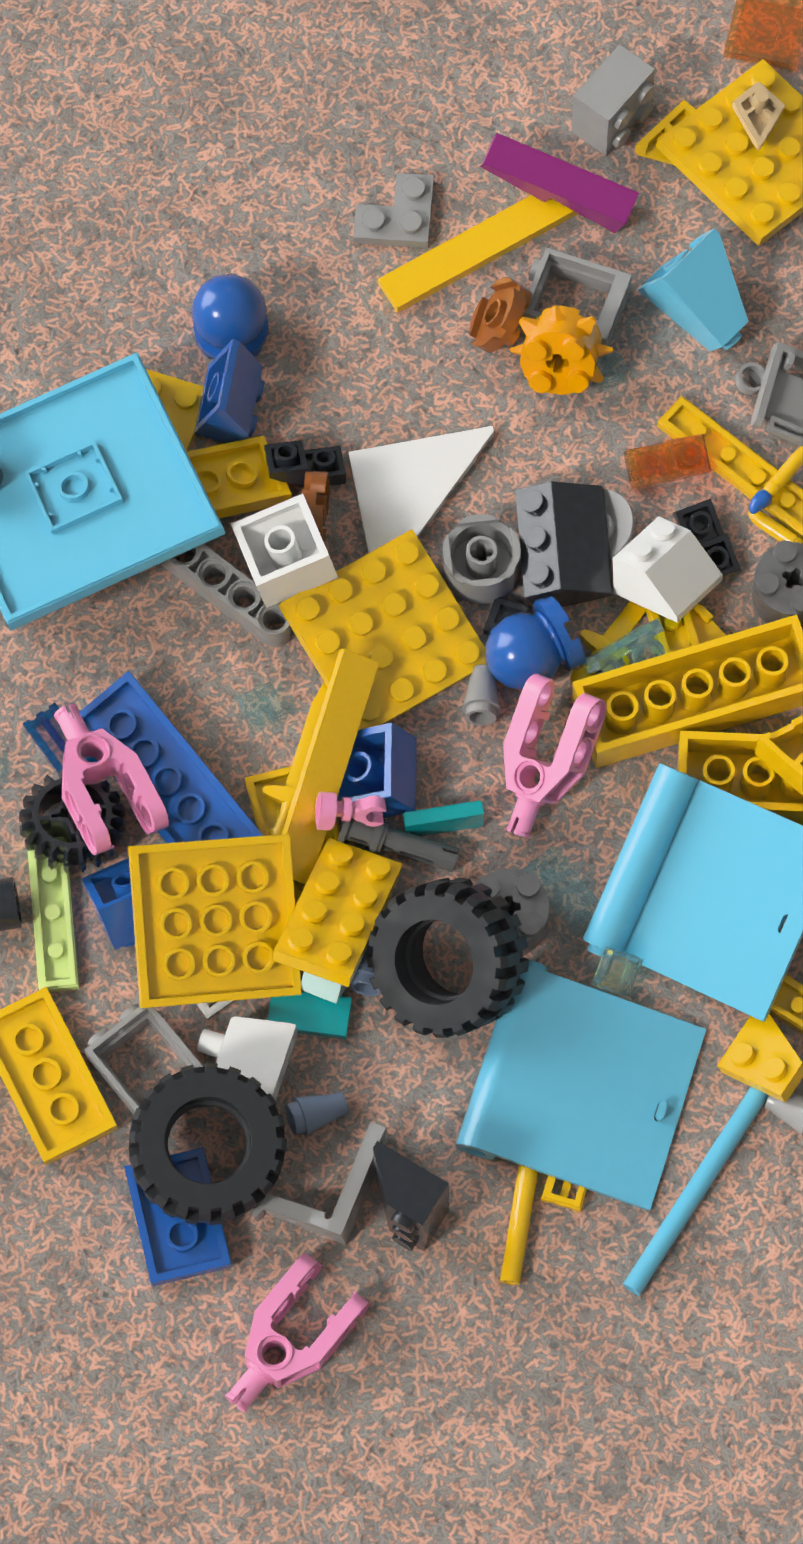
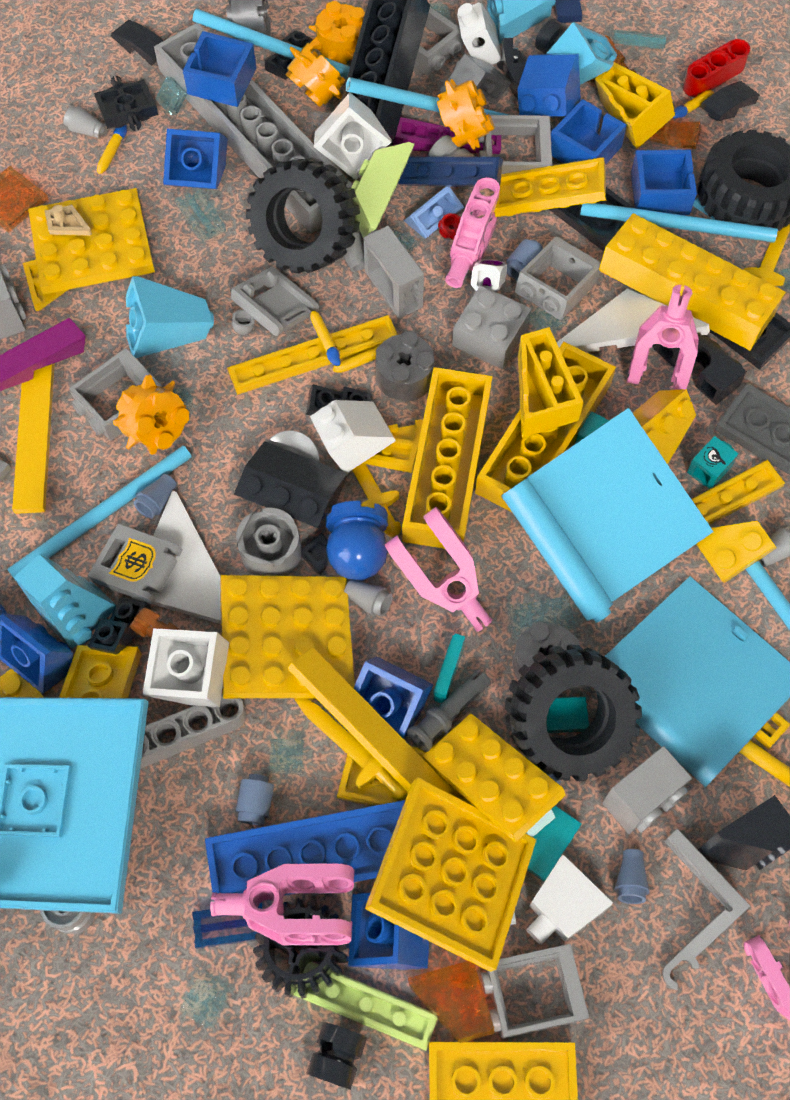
camera: 65 degrees left, 5 degrees down
(99, 992) = (455, 1000): none -> clear orange wing
(169, 1244) = (671, 1031): blue plate -> none
(196, 699) = (254, 800): none -> sand blue brick
(214, 1088) = (683, 961): black tyre -> none
(292, 393) = (64, 600): none -> medium azure wedge
(365, 810) = (409, 738): bright pink piece -> none
(383, 441) = (139, 564): none -> light grey container
(409, 1079) = (647, 789): none -> light grey brick
(428, 369) = (104, 509): none -> medium azure piece
(450, 955) = (567, 715): none -> teal tile
(476, 412) = (154, 497): none -> sand blue cone
(497, 319) = (95, 429): dark orange plate -> none
(617, 971) = (626, 609): clear light blue tile -> none
(635, 641) = (391, 483): clear light blue plate -> none
(667, 461) = (268, 398): clear orange slope -> none

